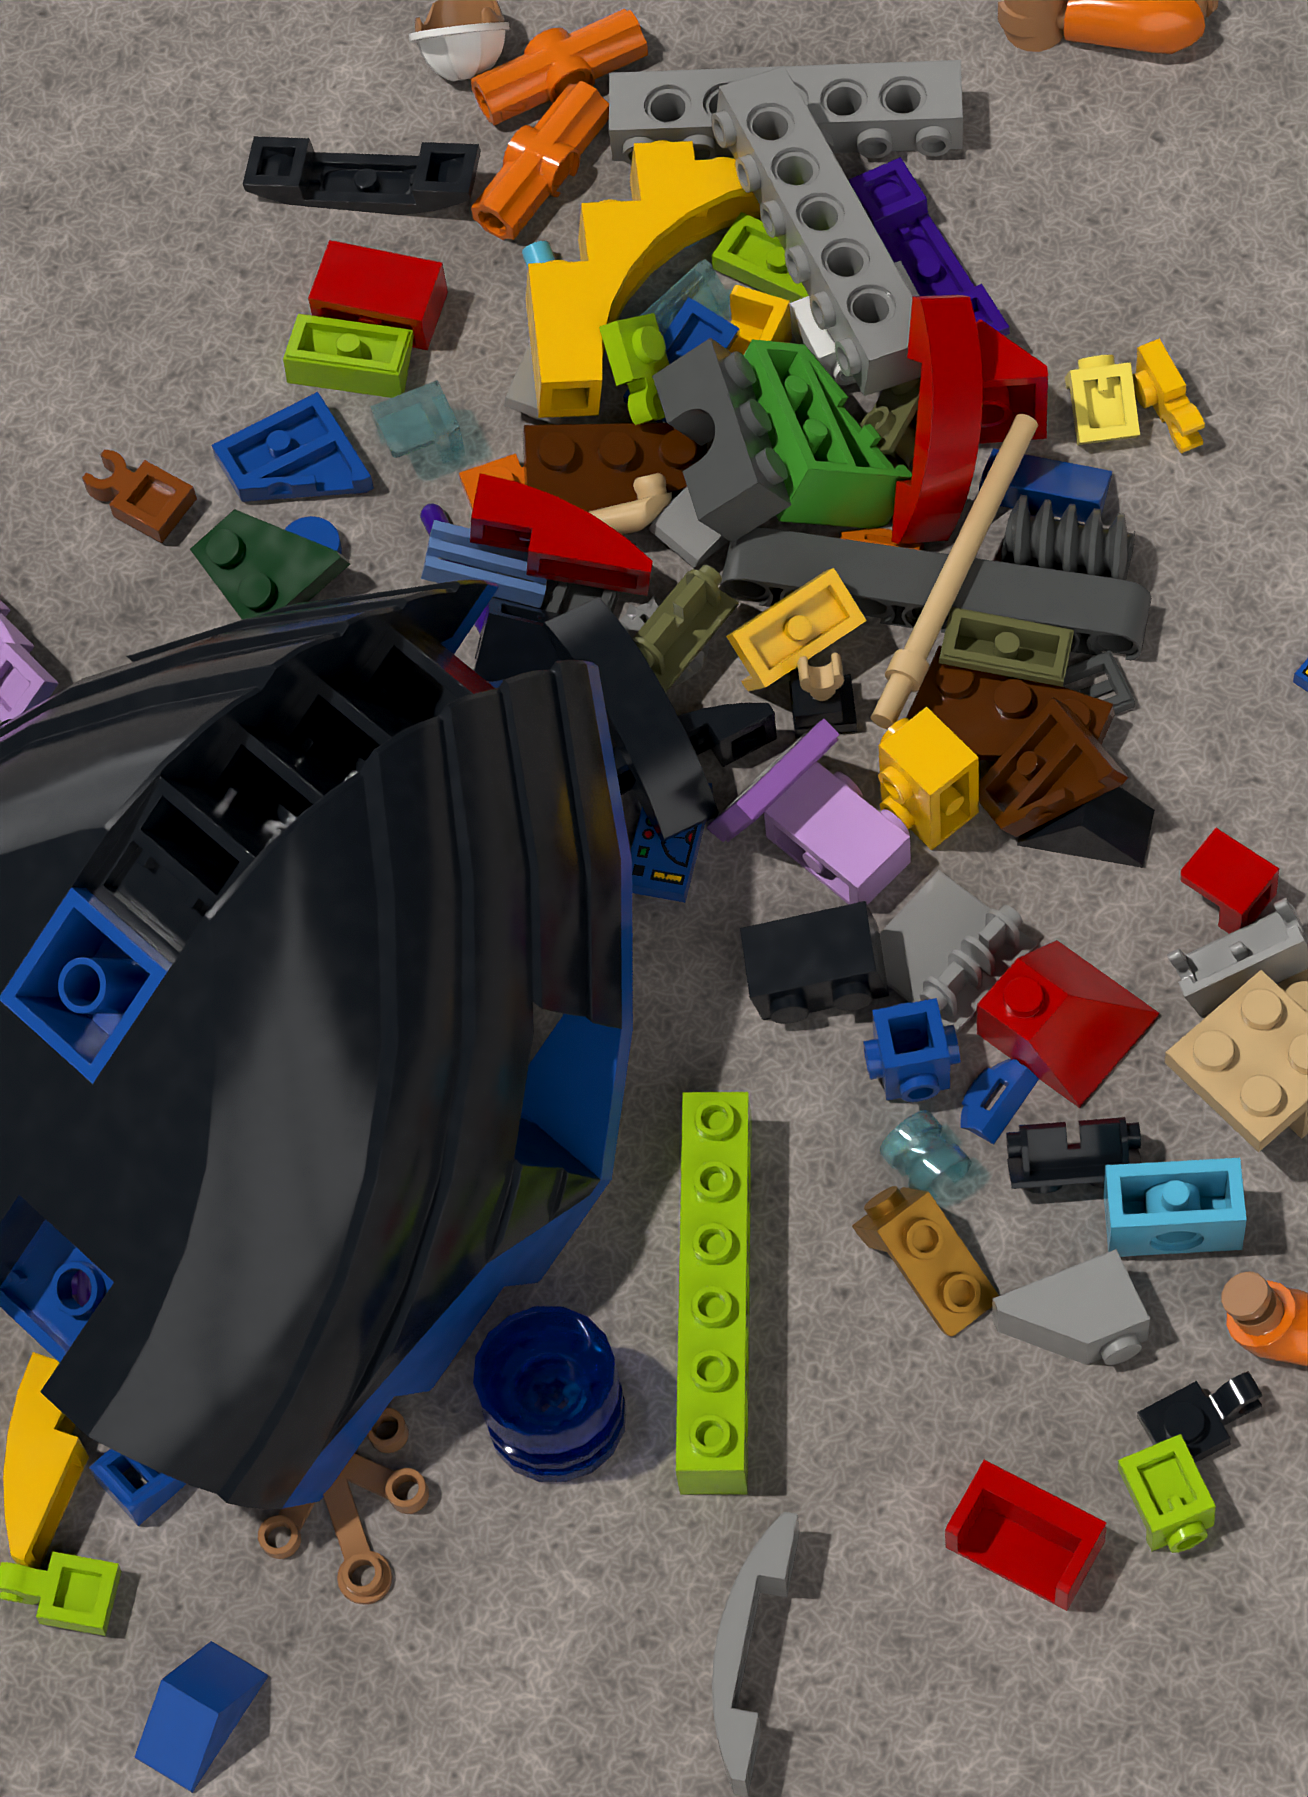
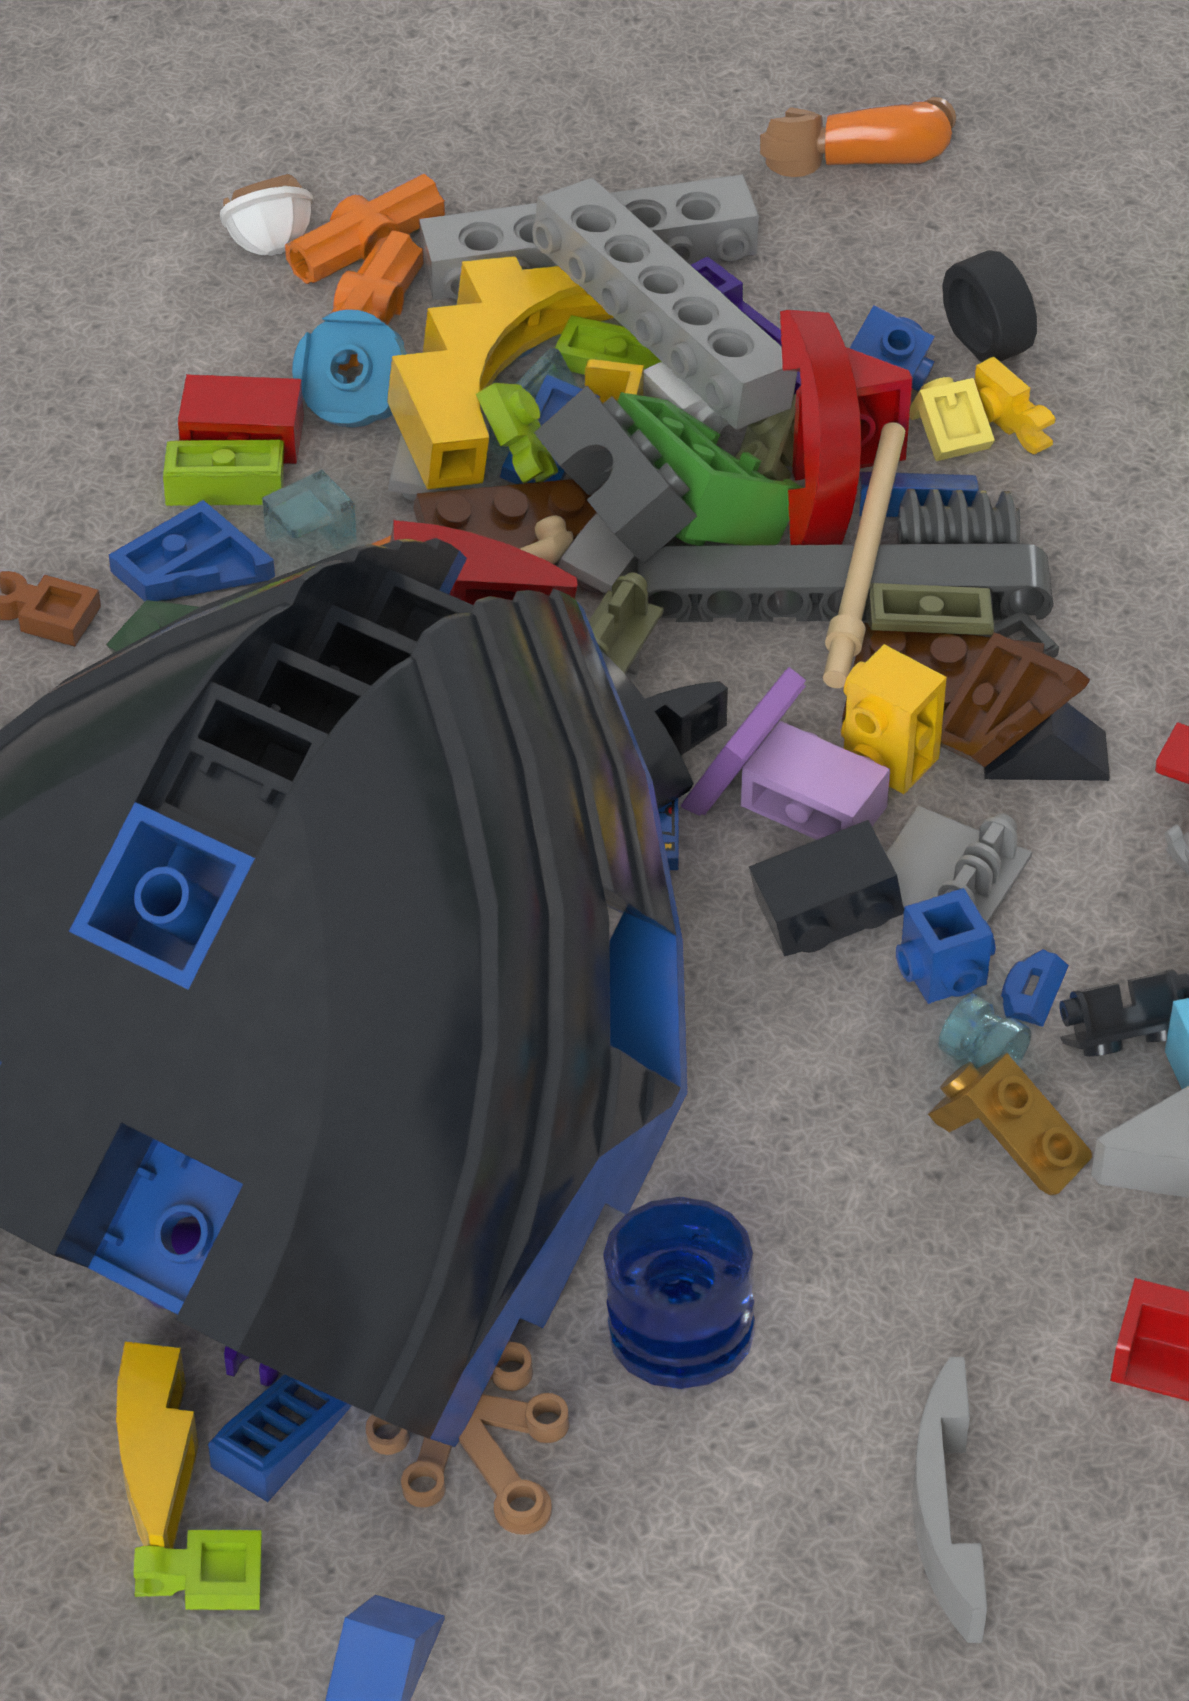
camera: 20 degrees left, 15 degrees down
(372, 183) = (129, 341): black slope -> none
(483, 223) = (330, 345): none -> dark azure plate
(714, 1294) = (817, 1188): lime brick -> none
(795, 628) = (727, 619): yellow panel -> none
(821, 695) = (758, 669): black piece -> none
(1054, 296) = (896, 342): none -> blue brick
(1062, 1019) = (1076, 912): red slope -> none
(1175, 271) = (990, 306): none -> black tyre

